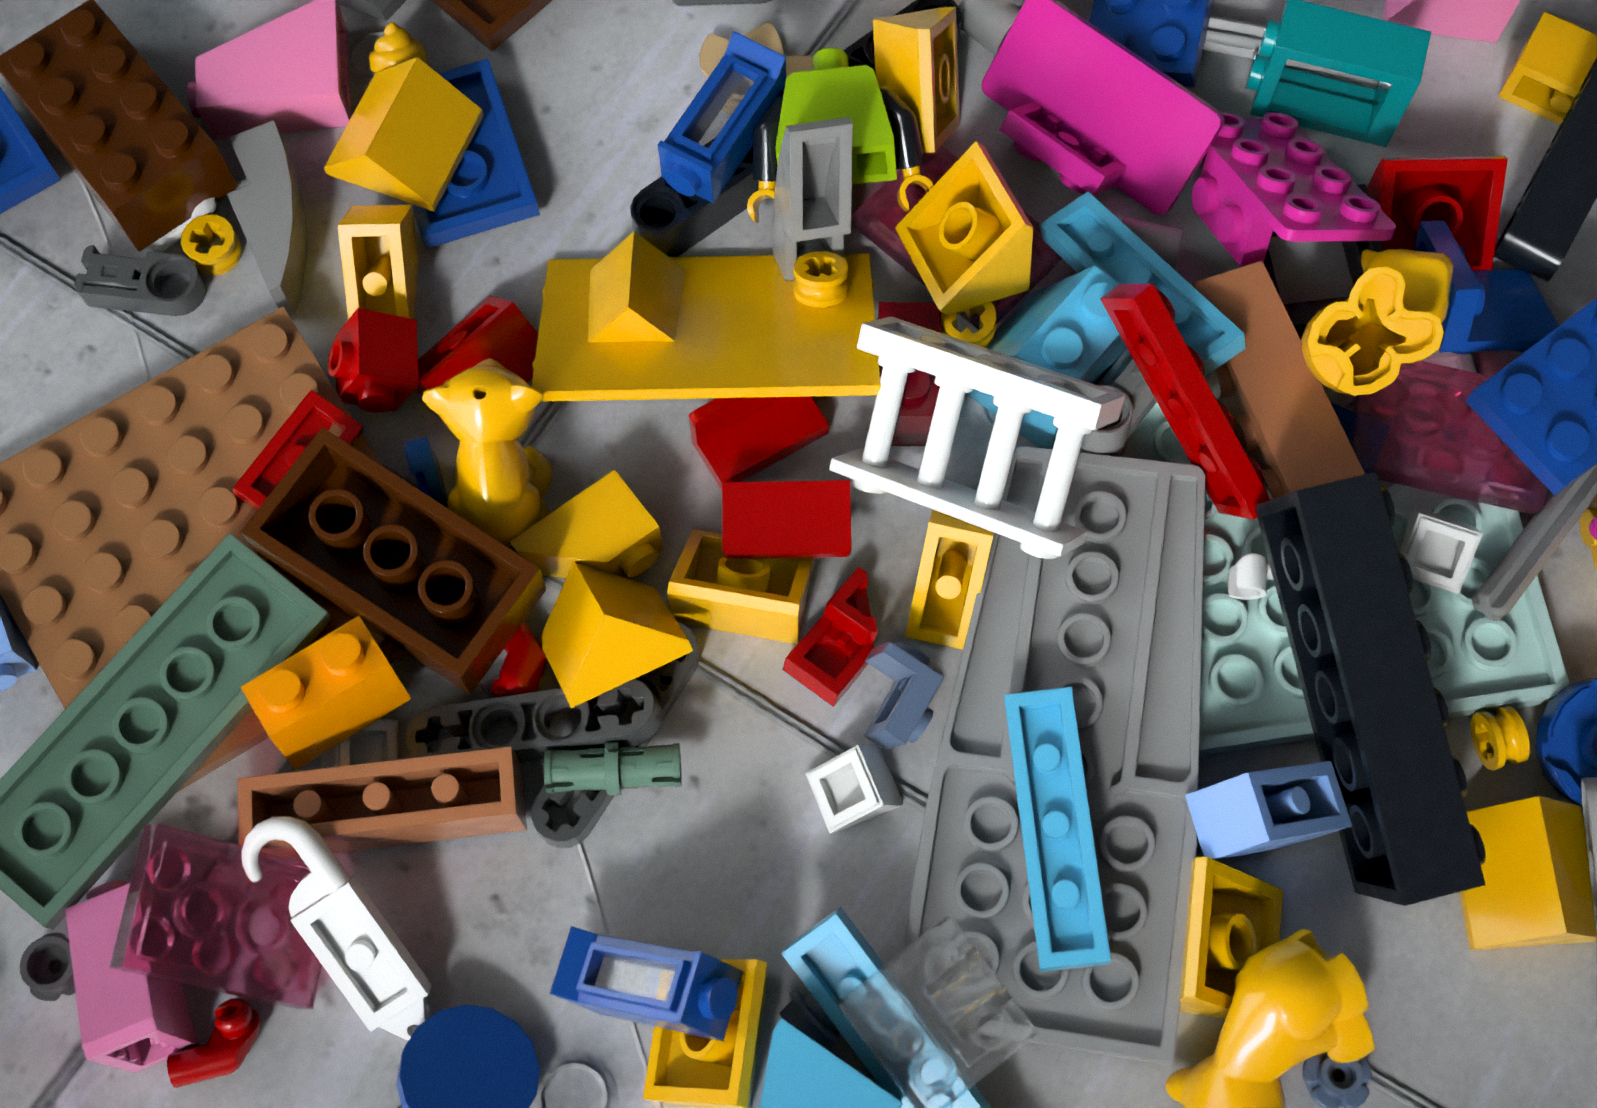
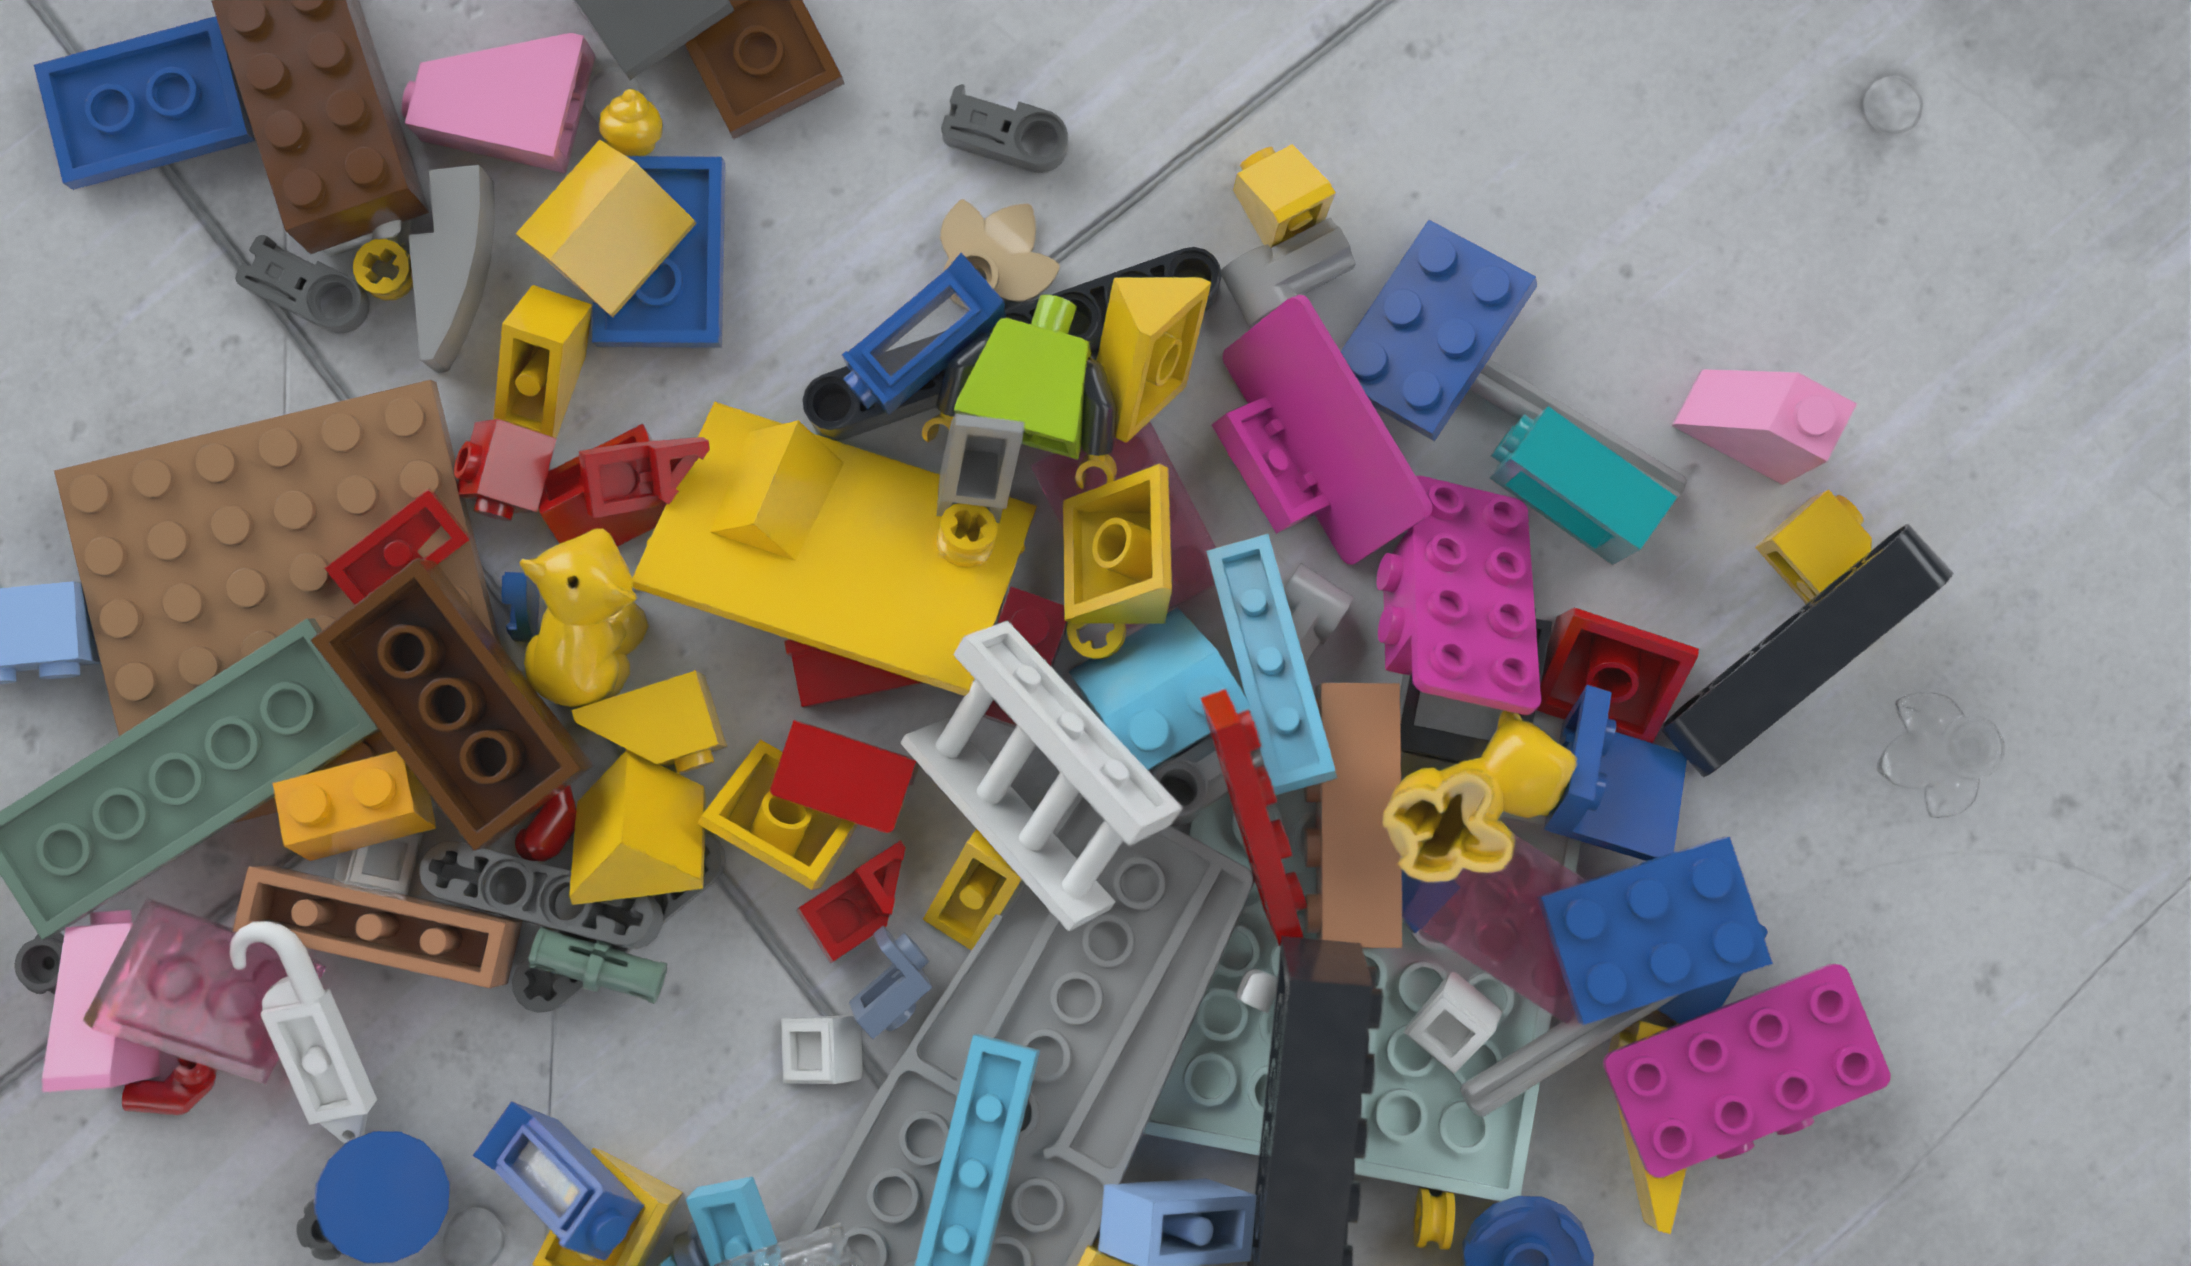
camera: 15 degrees right, 15 degrees up
(503, 318) = (637, 474): none -> red slope

